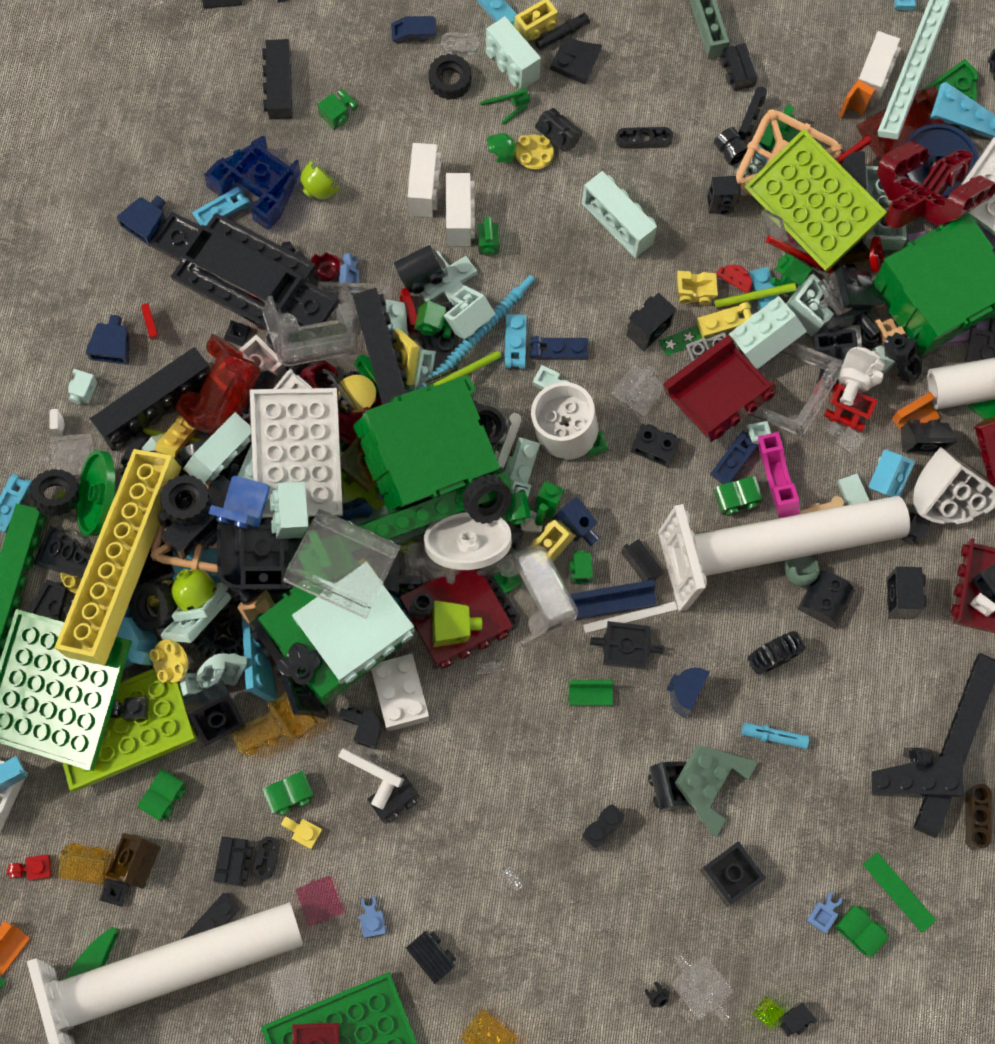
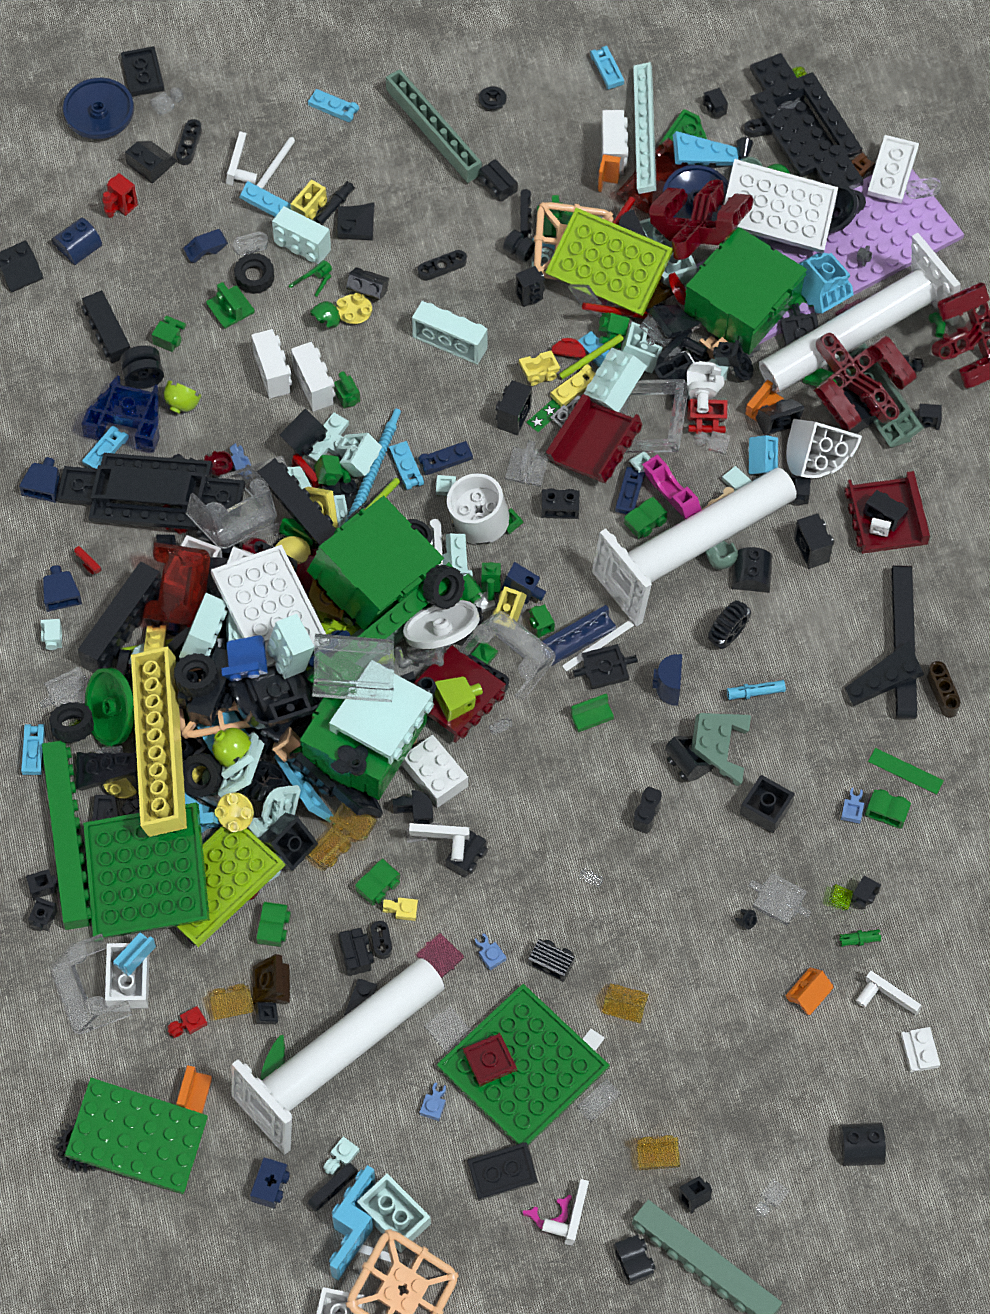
camera: 20 degrees left, 10 degrees down
(56, 422) = (44, 669): white tile -> none
(133, 710) = (220, 861): black plate -> none
(291, 135) = (141, 367): none -> black wheel
(410, 102) = (229, 305): none -> green bracket
(641, 561) = (587, 597): black panel -> none
(920, 756) = (879, 657): black plate -> none

